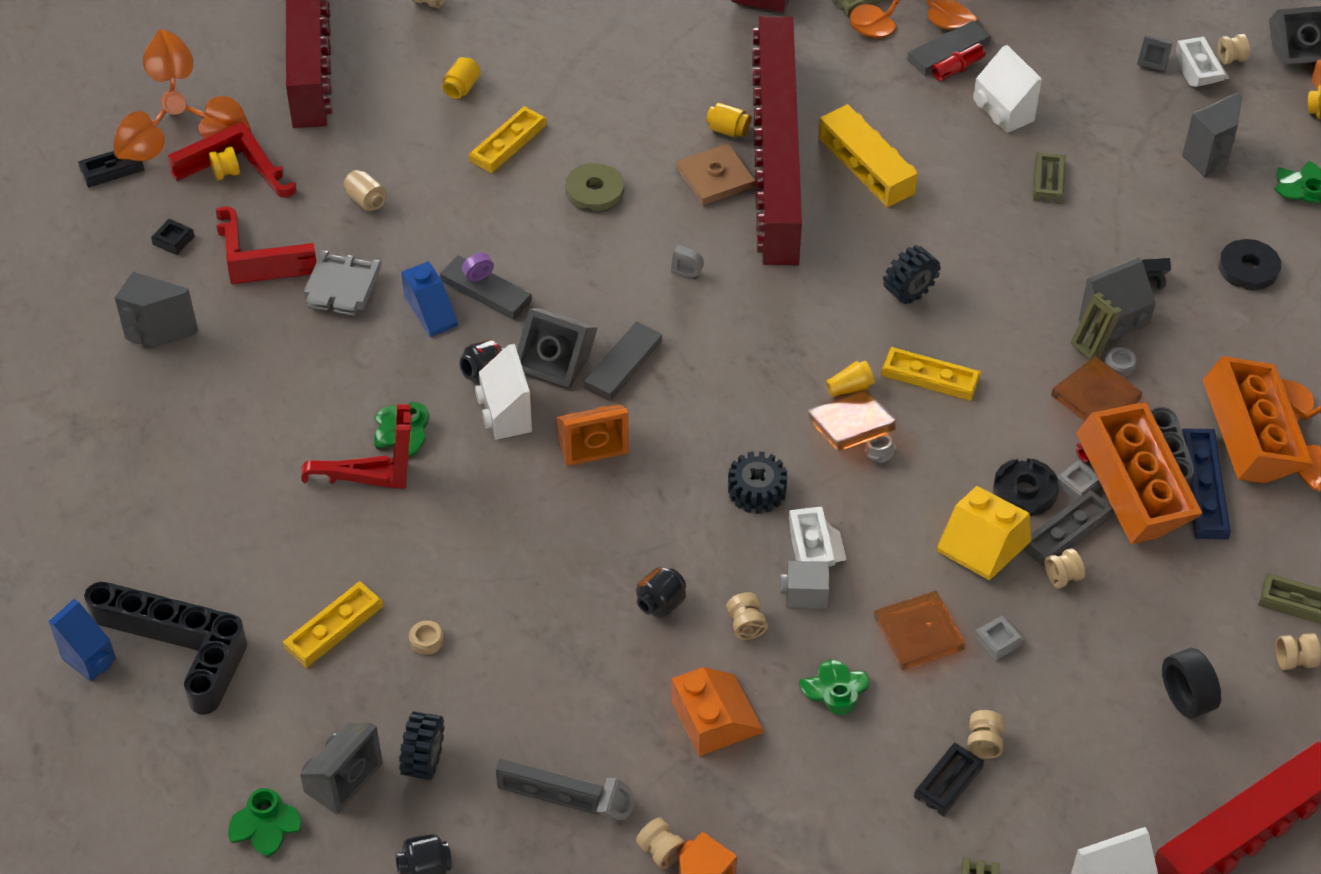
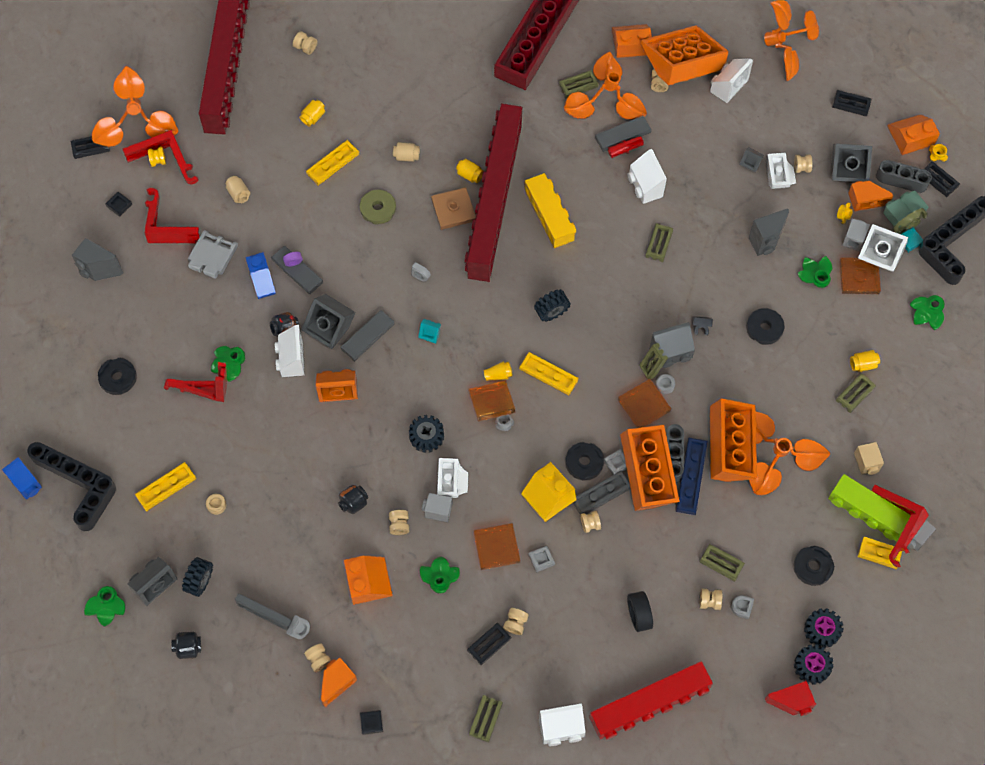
camera: 10 degrees right, 15 degrees up
(217, 489) = (119, 386): none -> black tile
(622, 108) = (406, 152): none -> tan brick
(723, 338) = (429, 331): none -> teal tile

